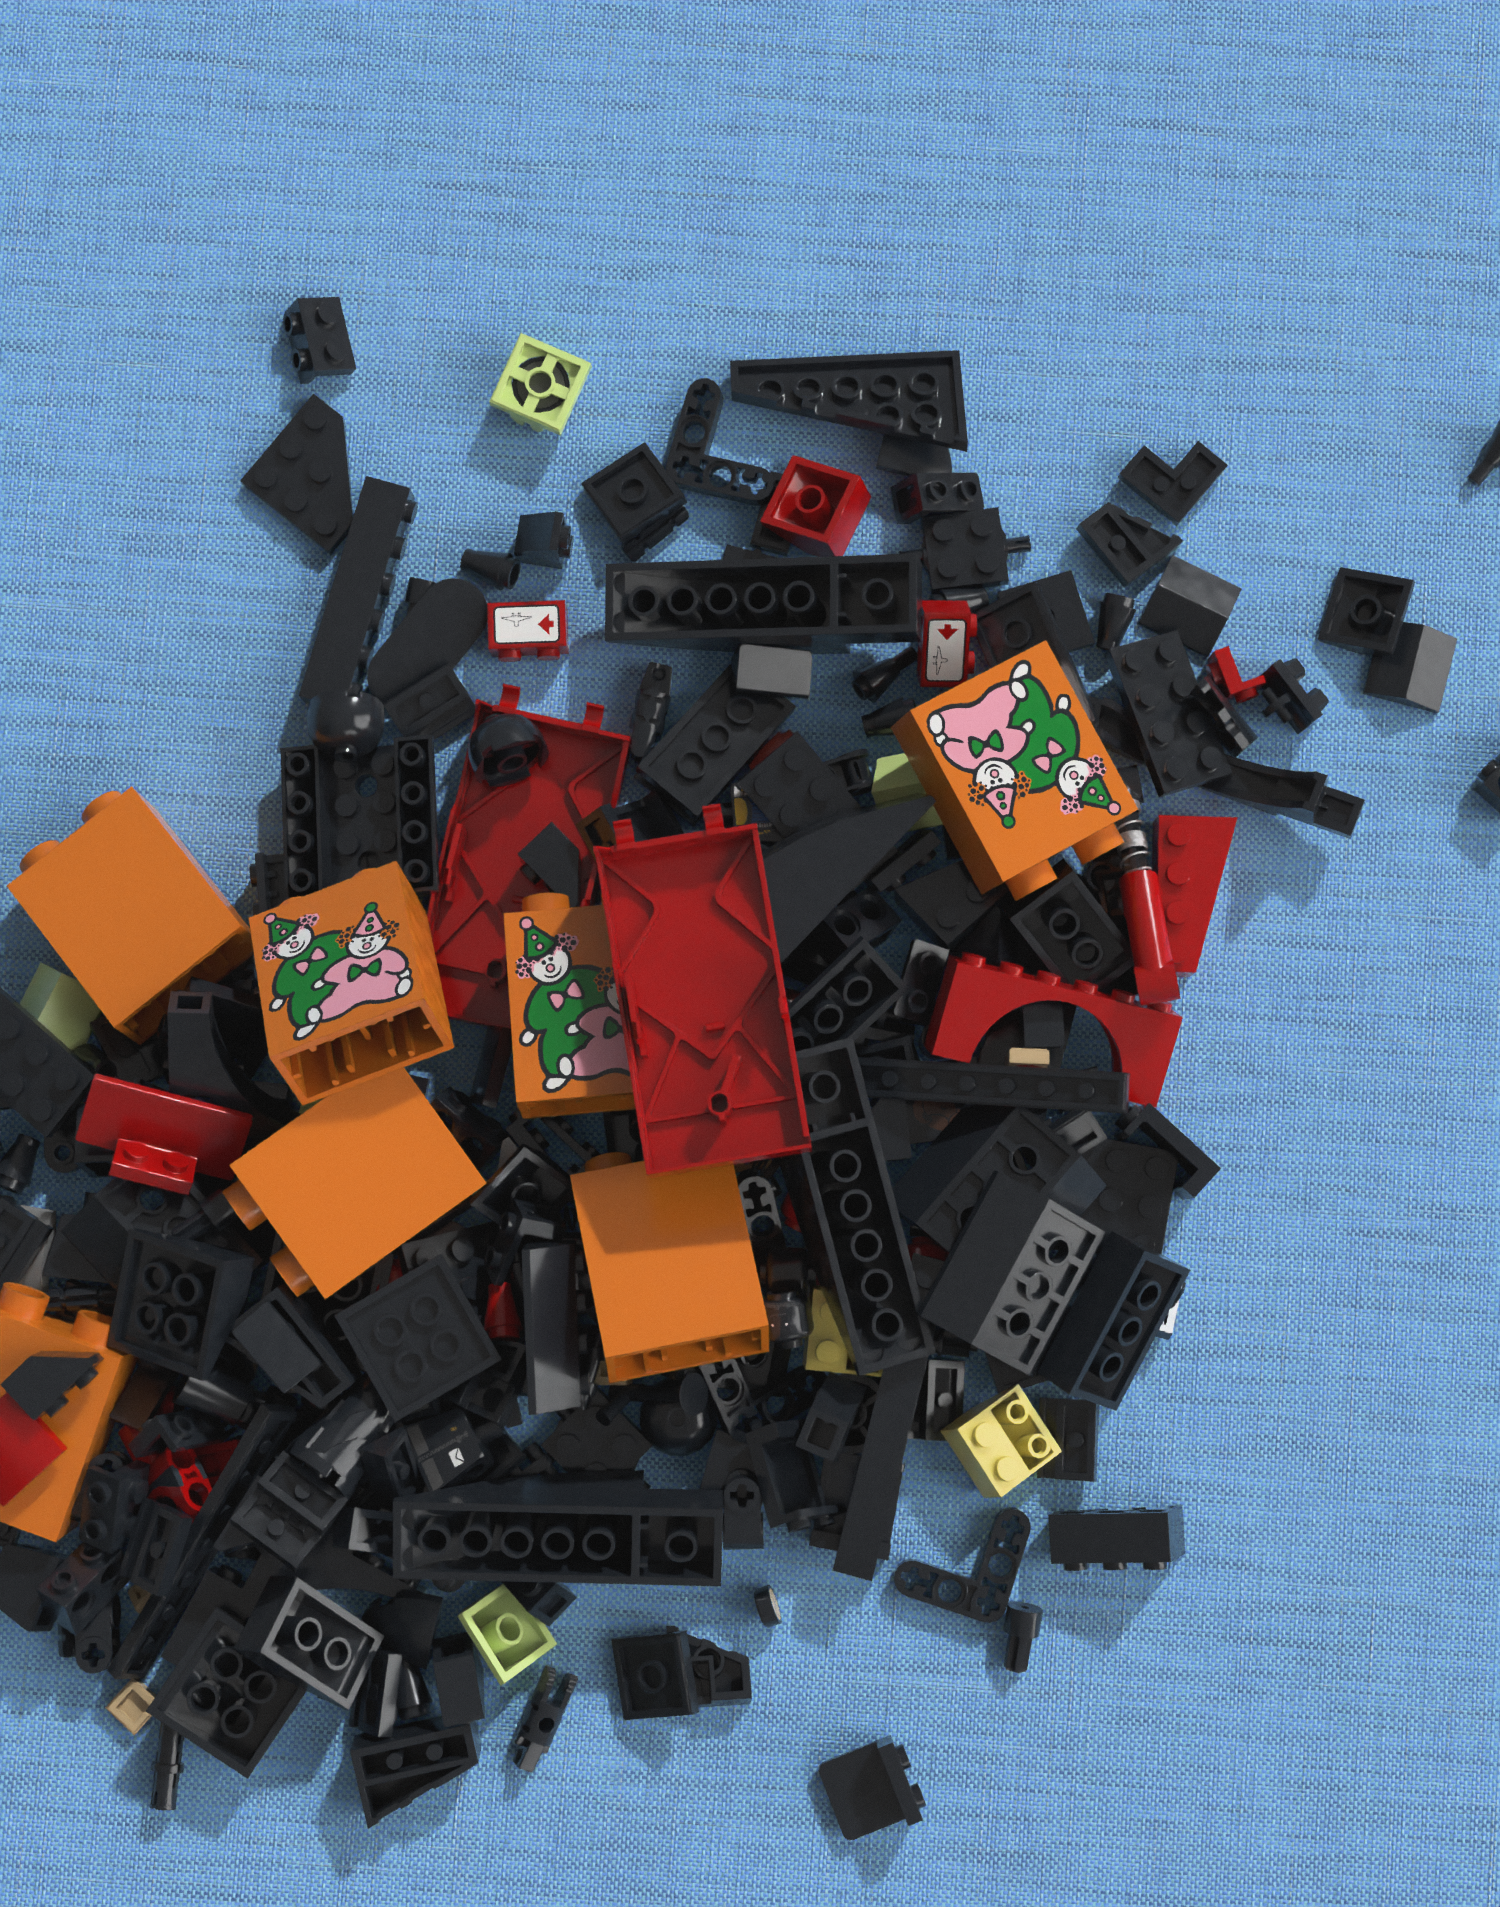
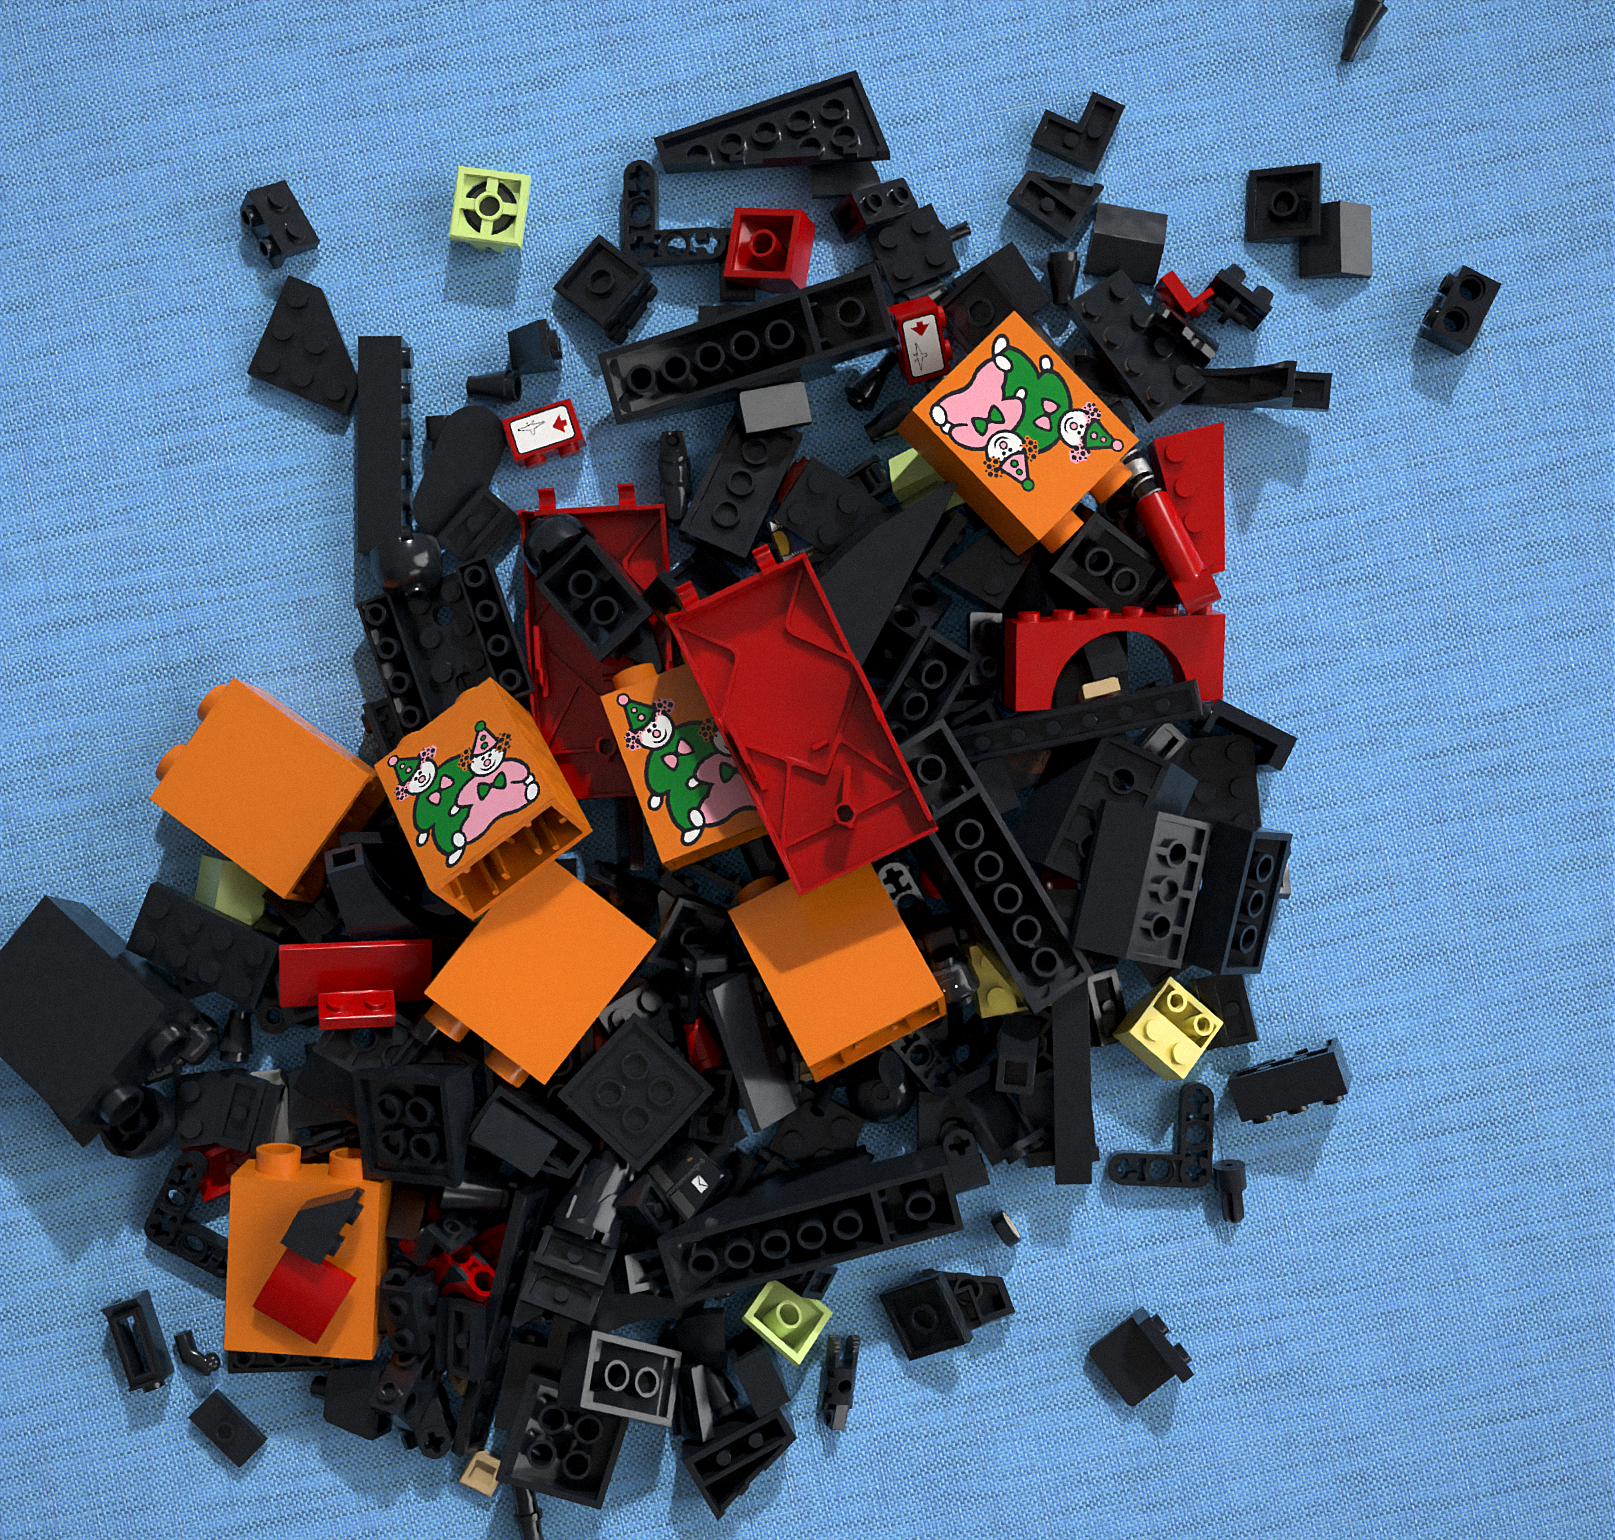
camera: 20 degrees left, 5 degrees up
(529, 810) = (595, 597): none -> black slope

